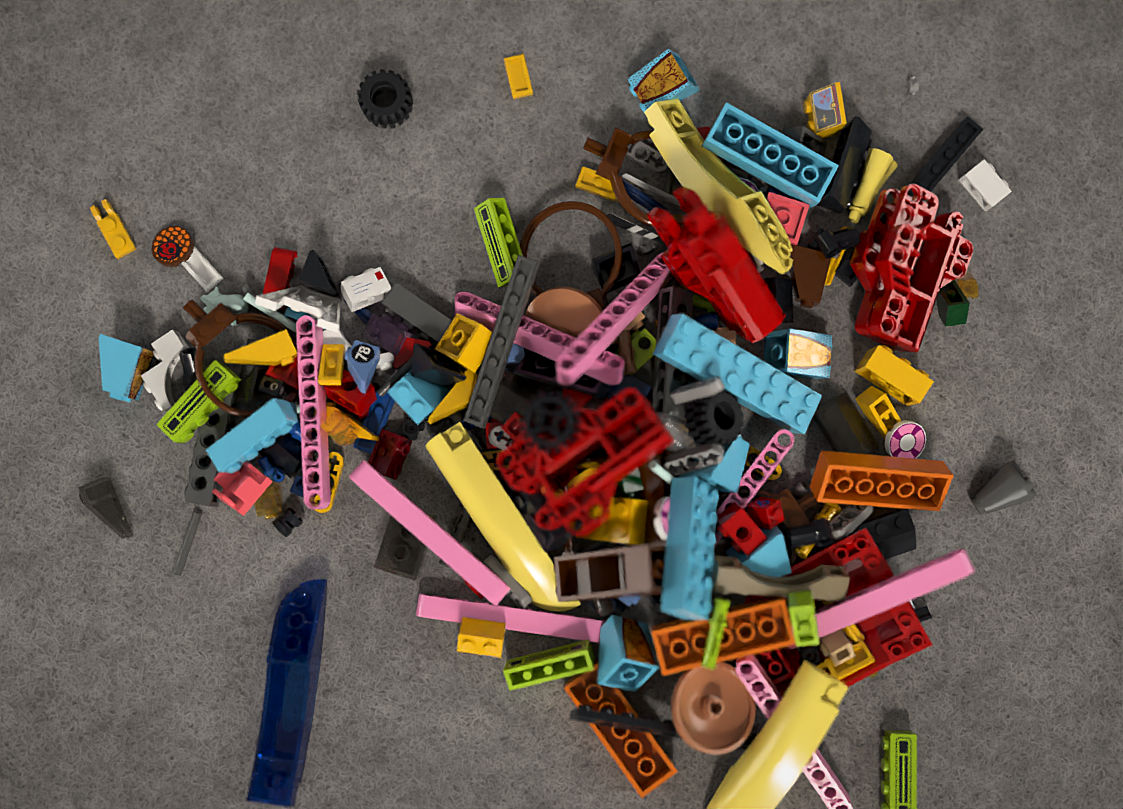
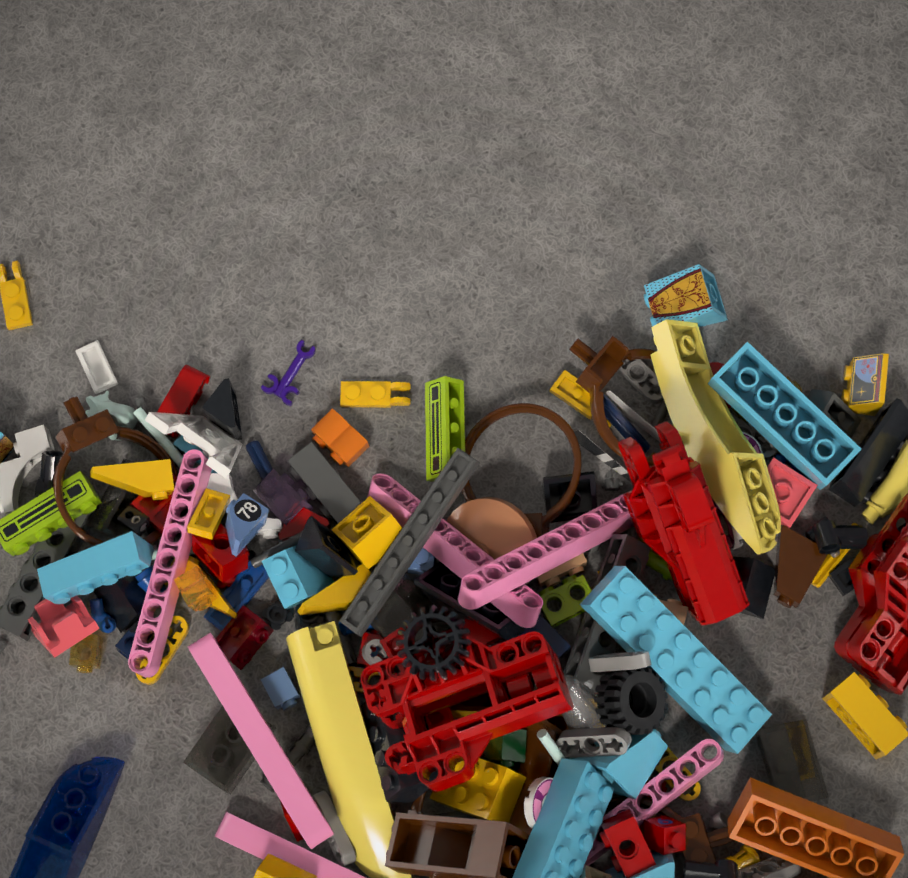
camera: 25 degrees right, 10 degrees down
(172, 246) = (73, 332): tile -> none
(287, 522) = (101, 682): black wheel -> none
(359, 243) = (282, 388): none -> dark purple bar
(365, 288) = (273, 439): white brick -> none
(385, 82) = (357, 216): black tyre -> none
(418, 272) = (339, 438): none -> orange brick
(432, 486) = (281, 689): none -> medium blue brick
(433, 229) = (373, 394): none -> yellow hinge
(518, 76) = (520, 249): yellow tile -> none
(627, 352) = (552, 596): medium nougat pin -> none
(707, 320) = (660, 587): blue cone -> none
(799, 353) = (759, 657): slope -> none
(878, 410) = (842, 764): yellow slope -> none
(905, 440) = (861, 798): tile -> none

